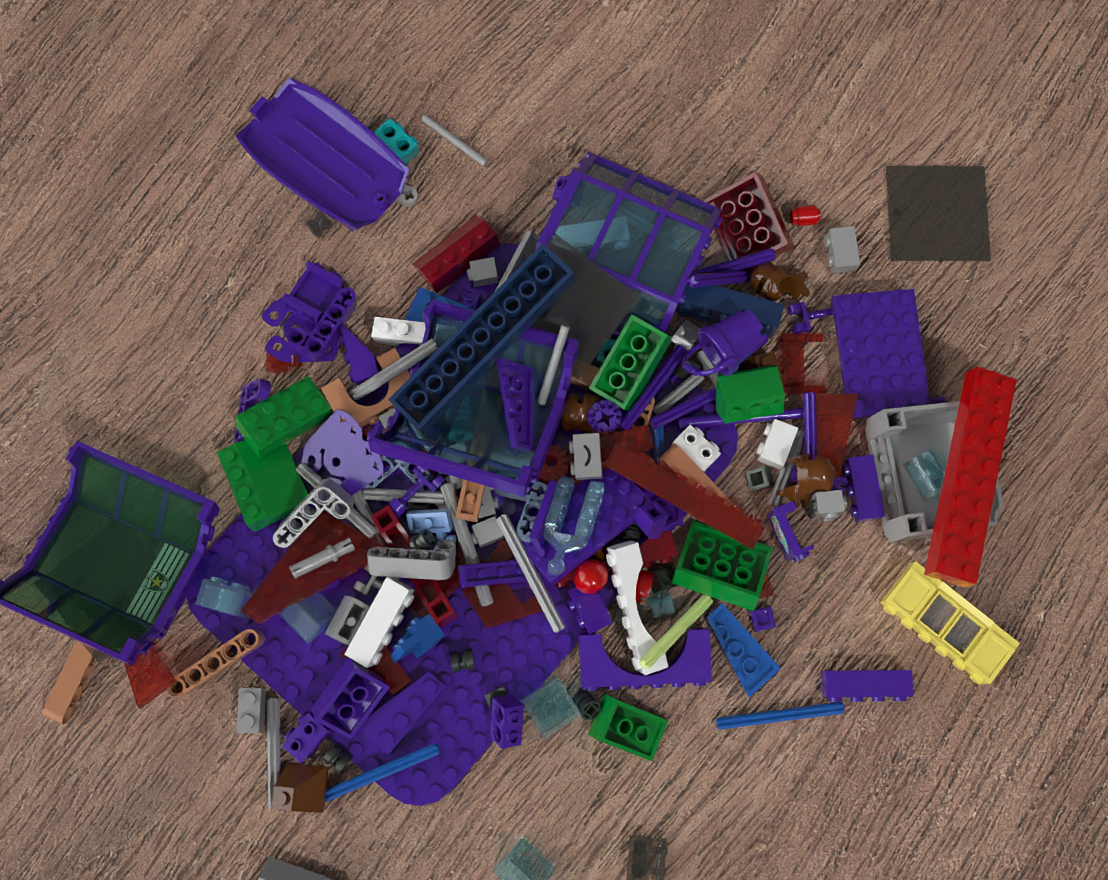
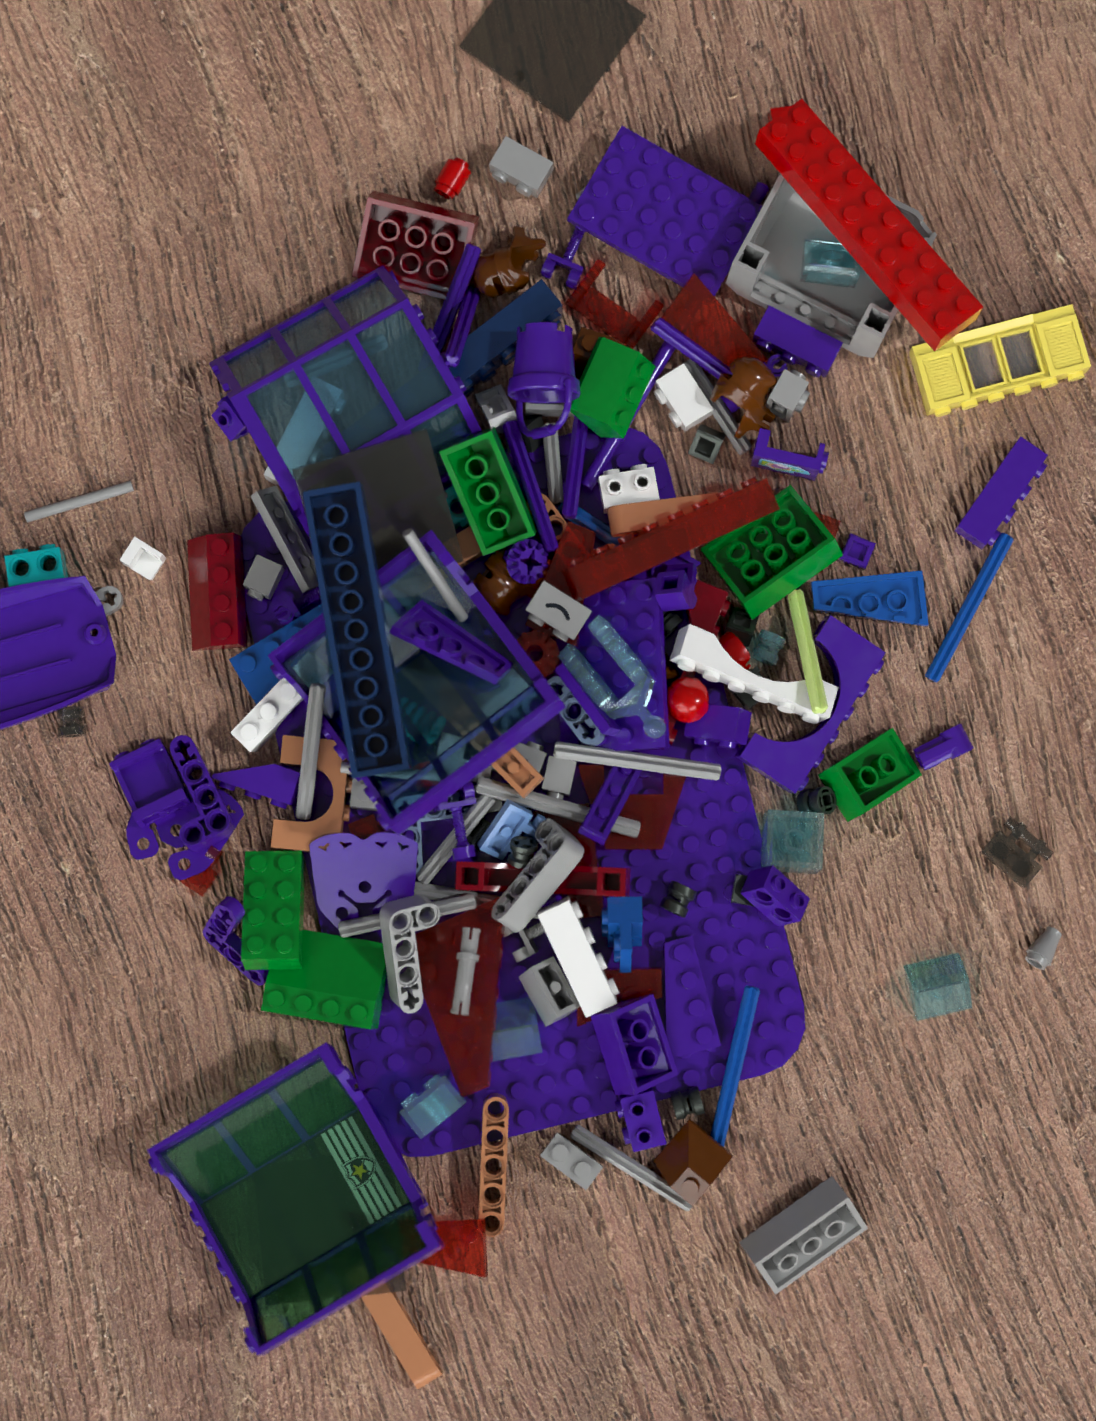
camera: 50 degrees left, 5 degrees up
(445, 197) = (143, 559): none -> white panel
(683, 765) = (948, 745): none -> dark purple piece

